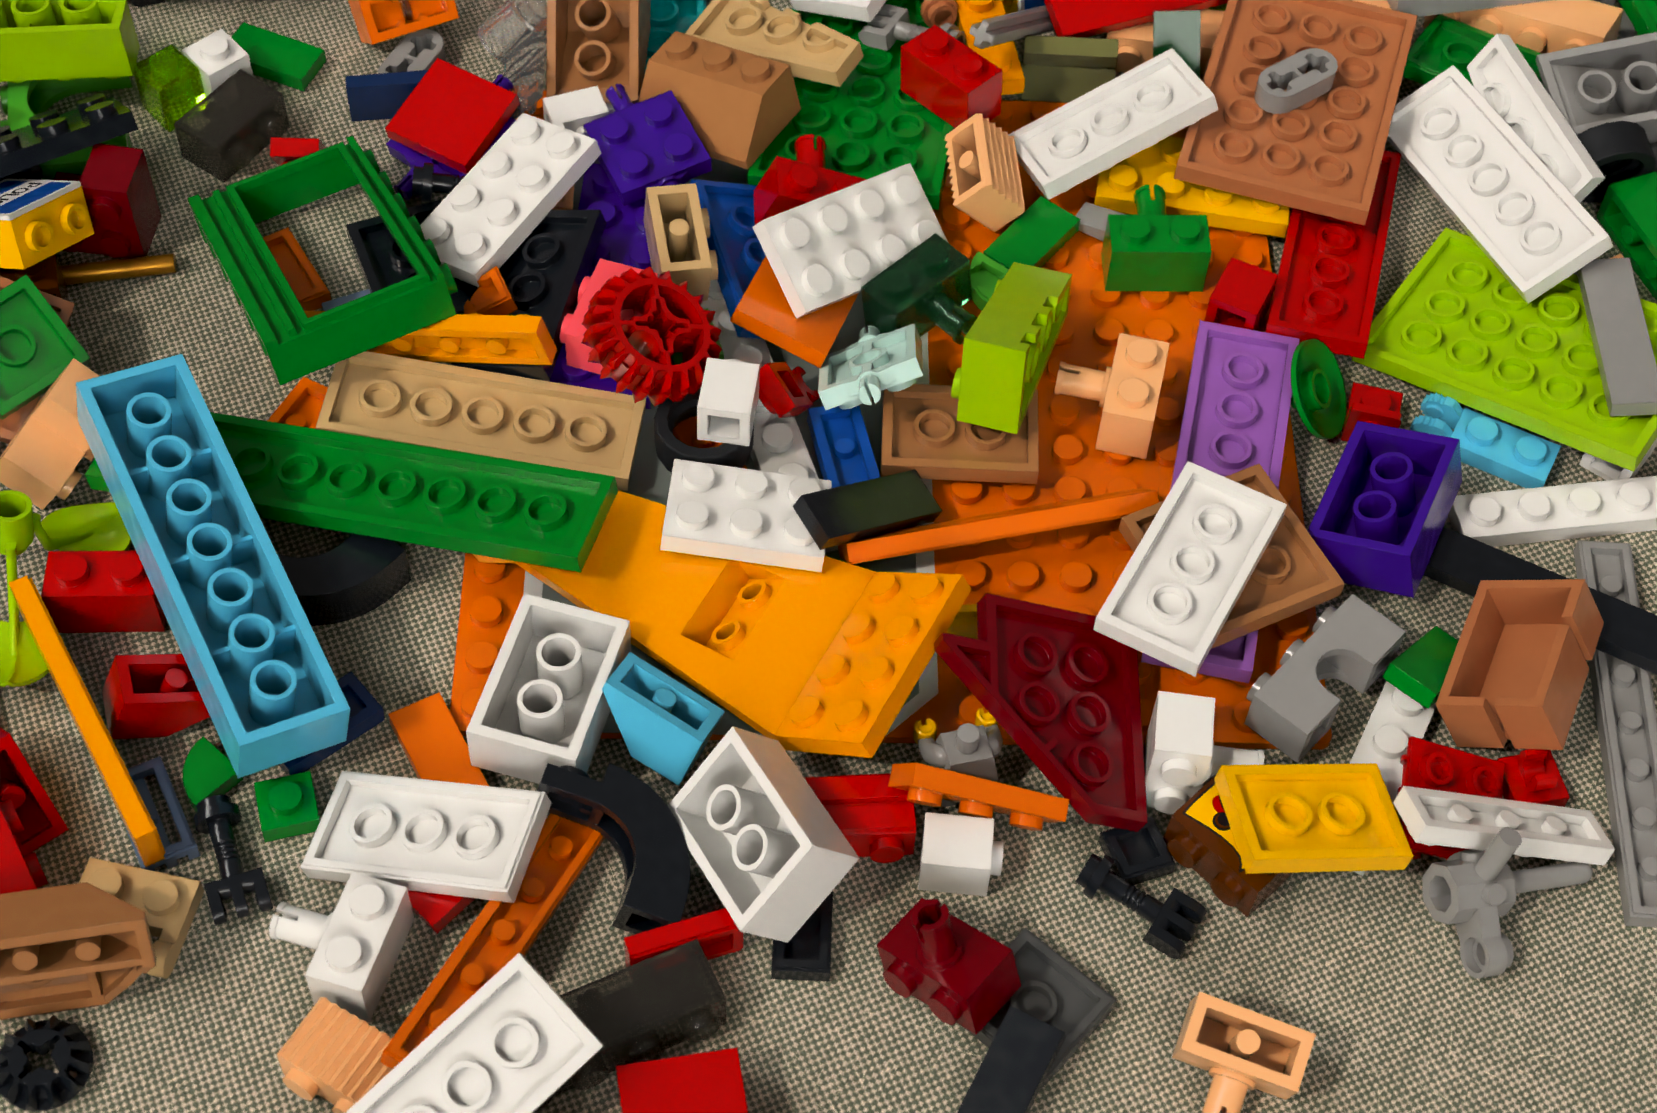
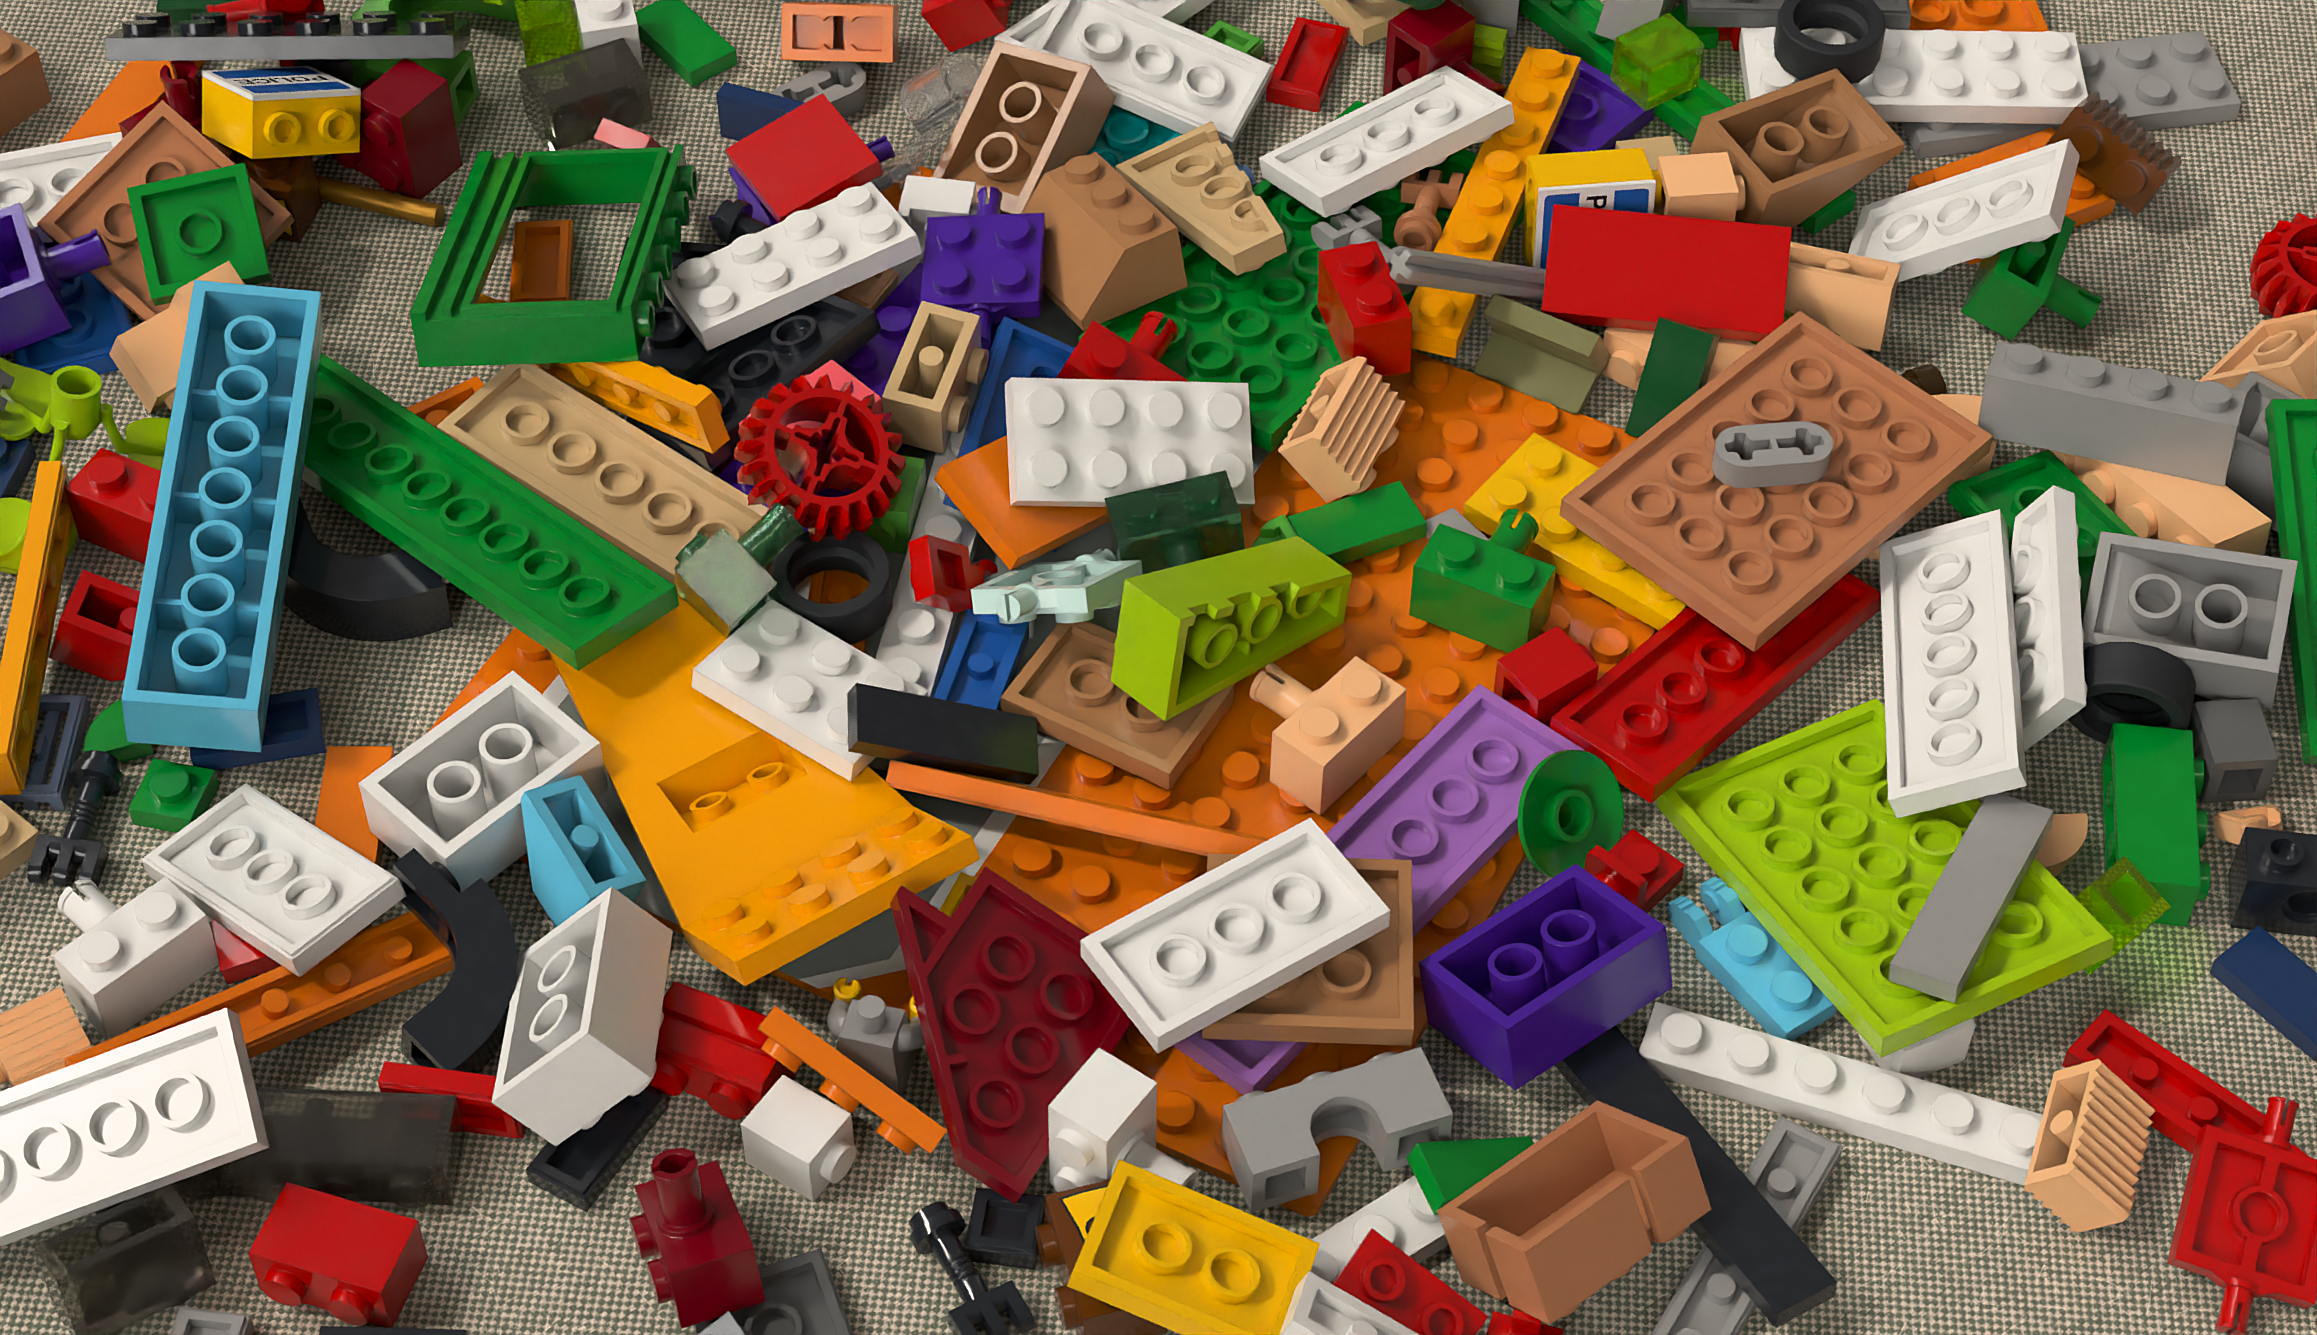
camera: 30 degrees right, 5 degrees down
(491, 296) = (708, 365): orange tile -> none
(643, 452) = (728, 576): none -> clear green brick
(728, 401) = (855, 557): white brick -> none
(1112, 123) = (1524, 426): white plate -> none

